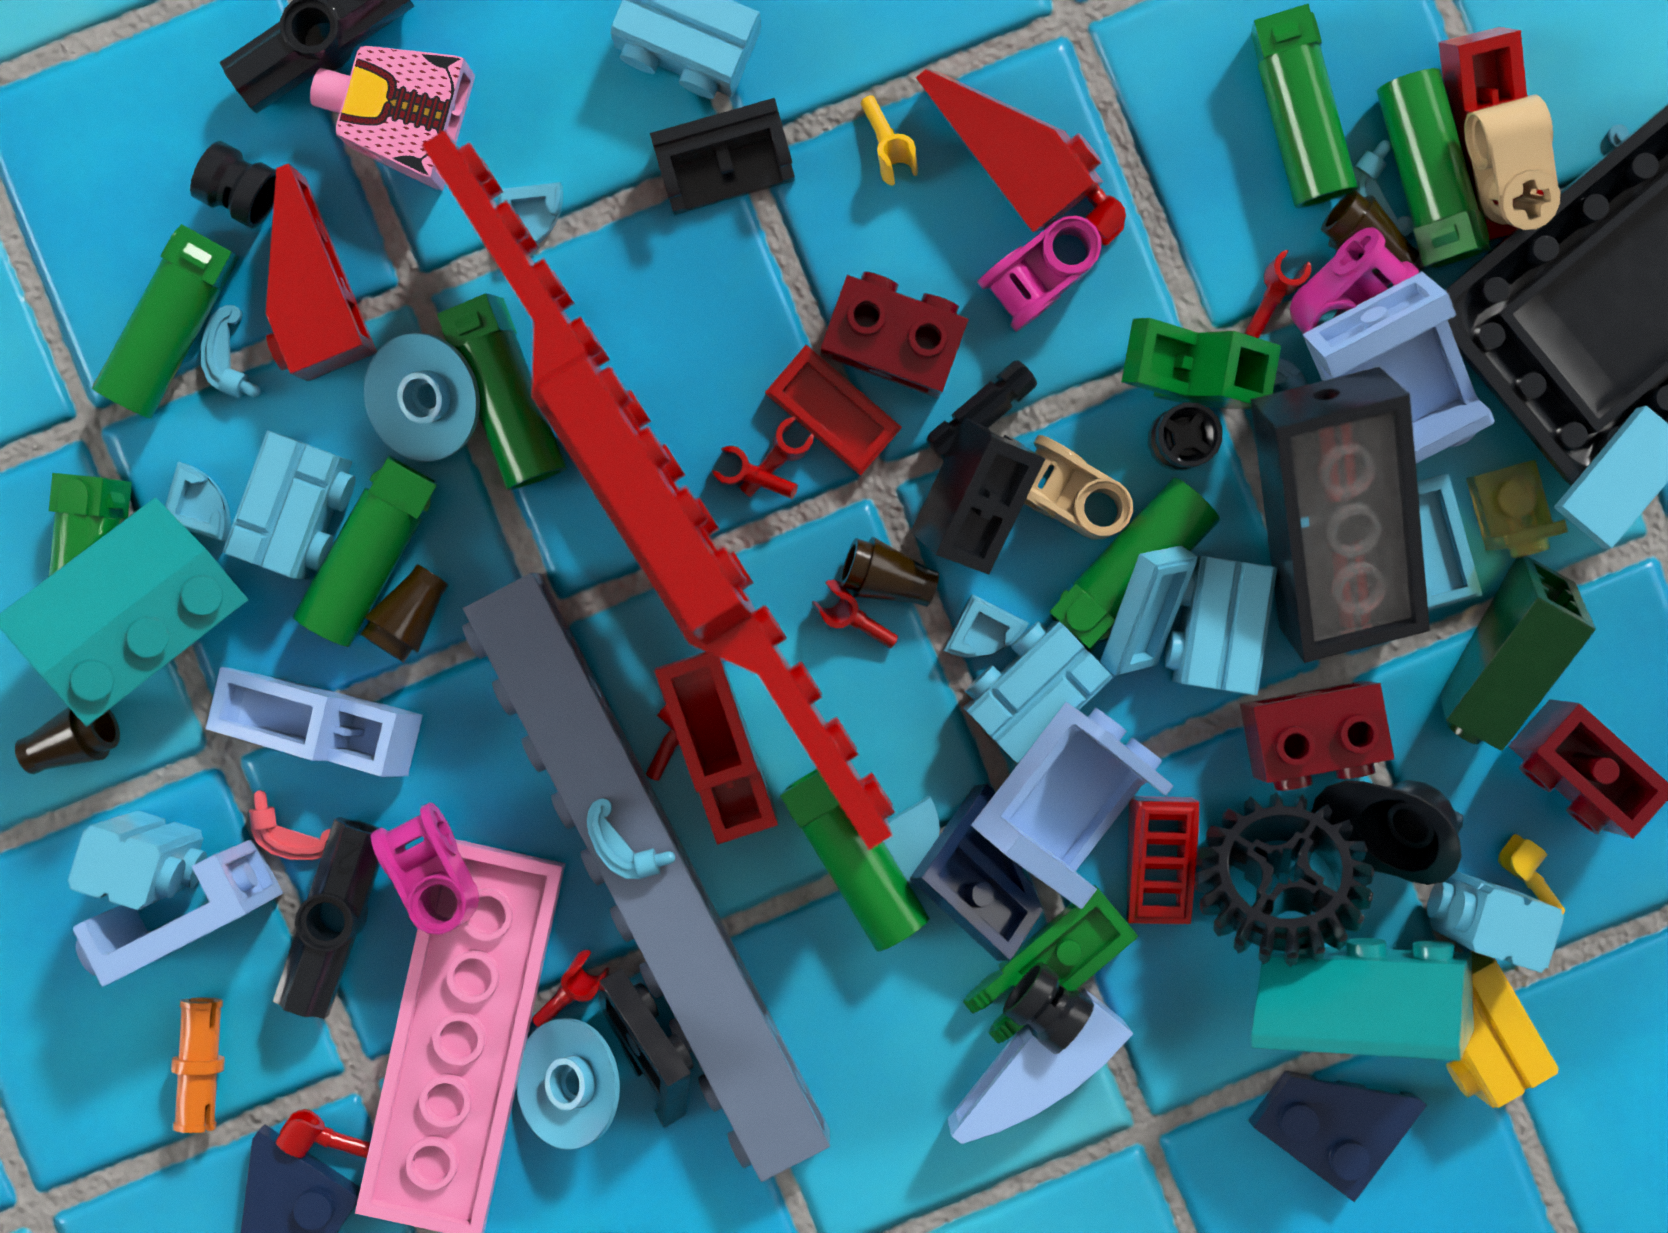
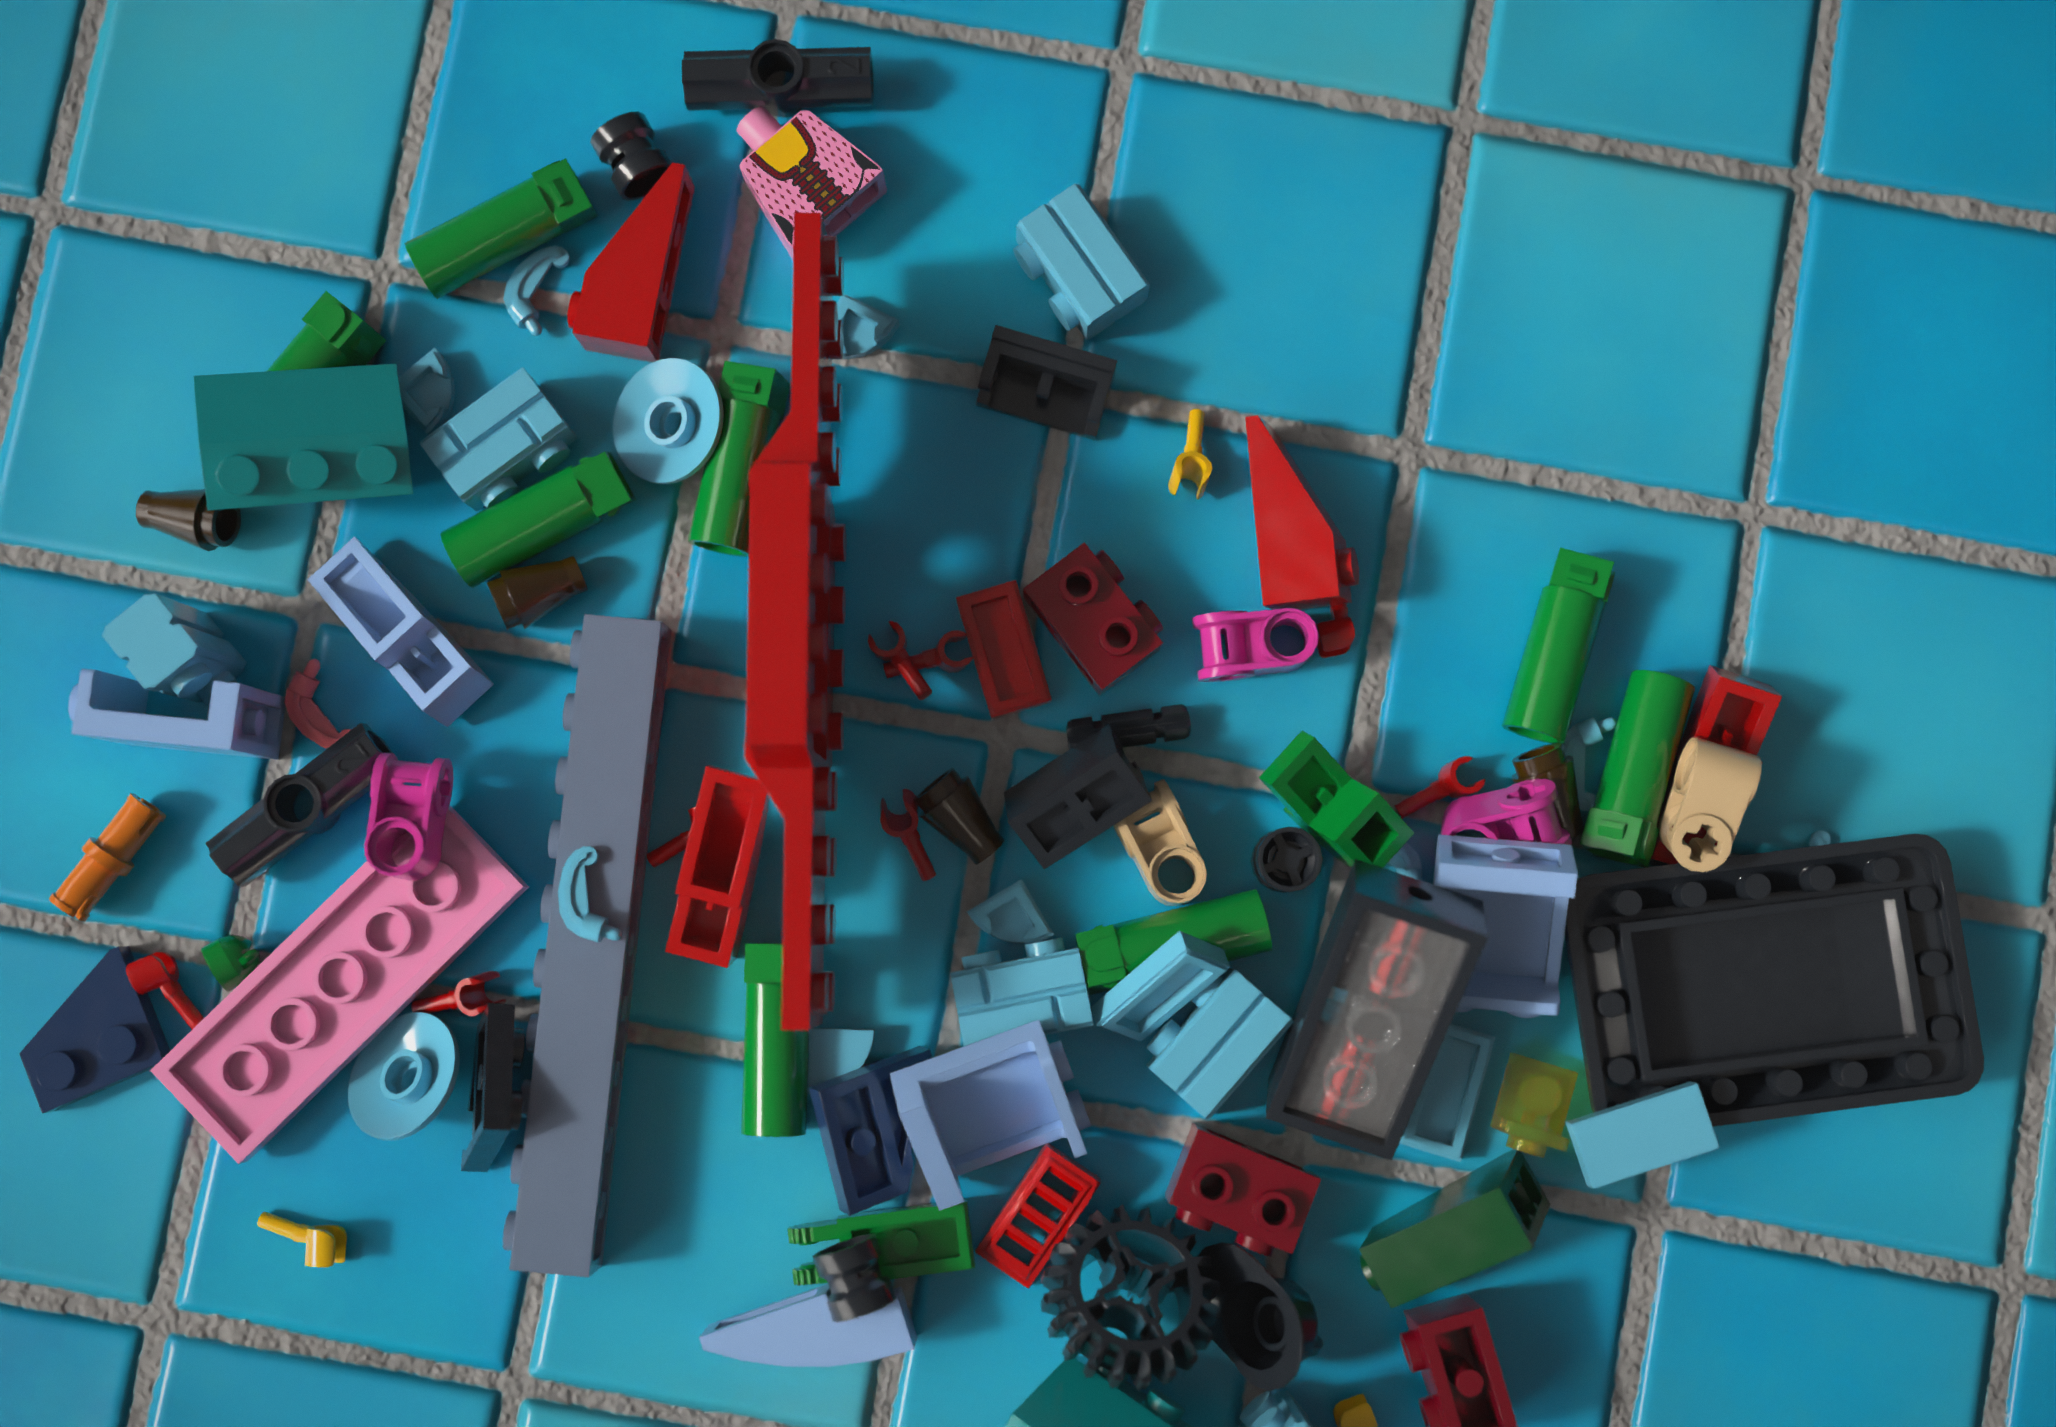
camera: 35 degrees right, 5 degrees down
(359, 1081) = (231, 959): none -> green hinge

